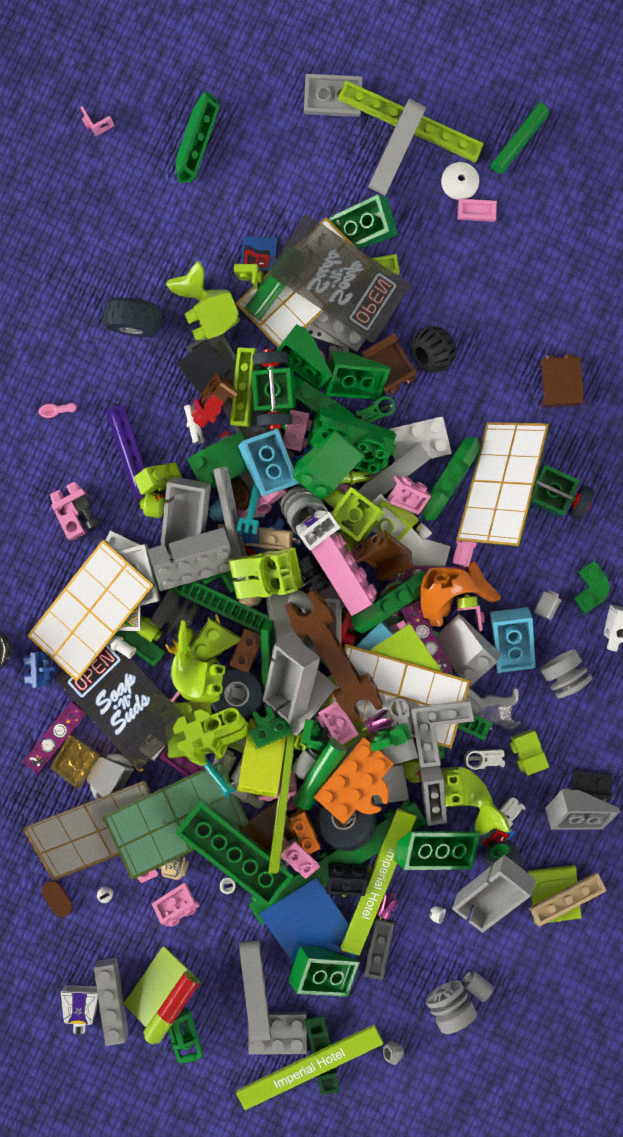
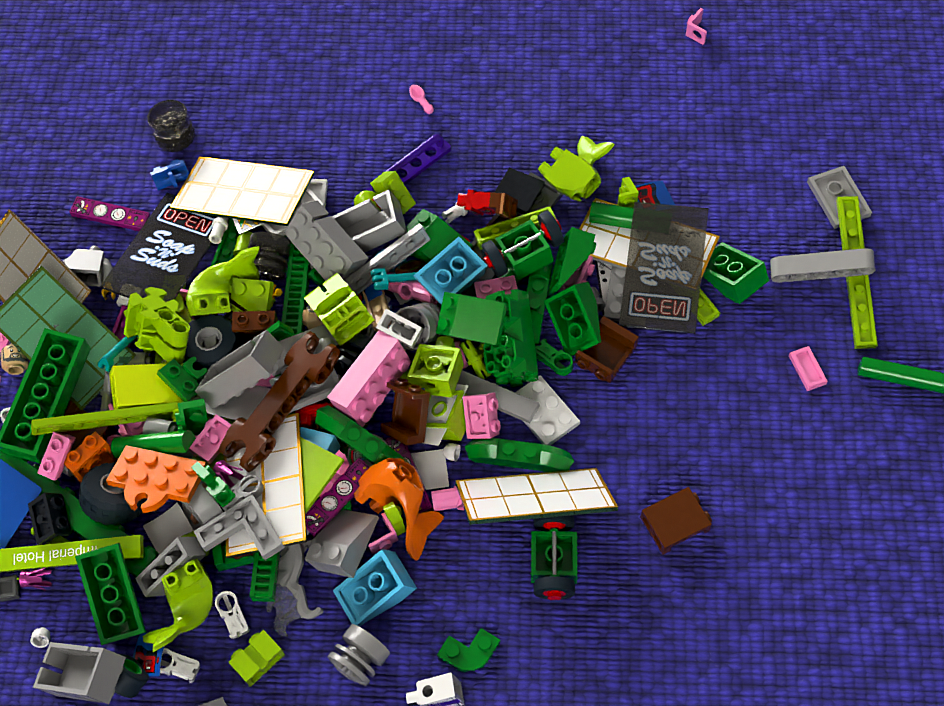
camera: 70 degrees right, 25 degrees down
(69, 507) = (331, 139): bright pink hips -> none
(74, 761) = (91, 234): clear yellow plate -> none
(132, 317) = (533, 115): black wheel -> none
(196, 137) = (729, 104): green brick -> none
(433, 349) = (643, 383): black wheel -> none
(460, 189) = (825, 349): white dish -> none
(547, 605) = (428, 609): light grey brick -> none

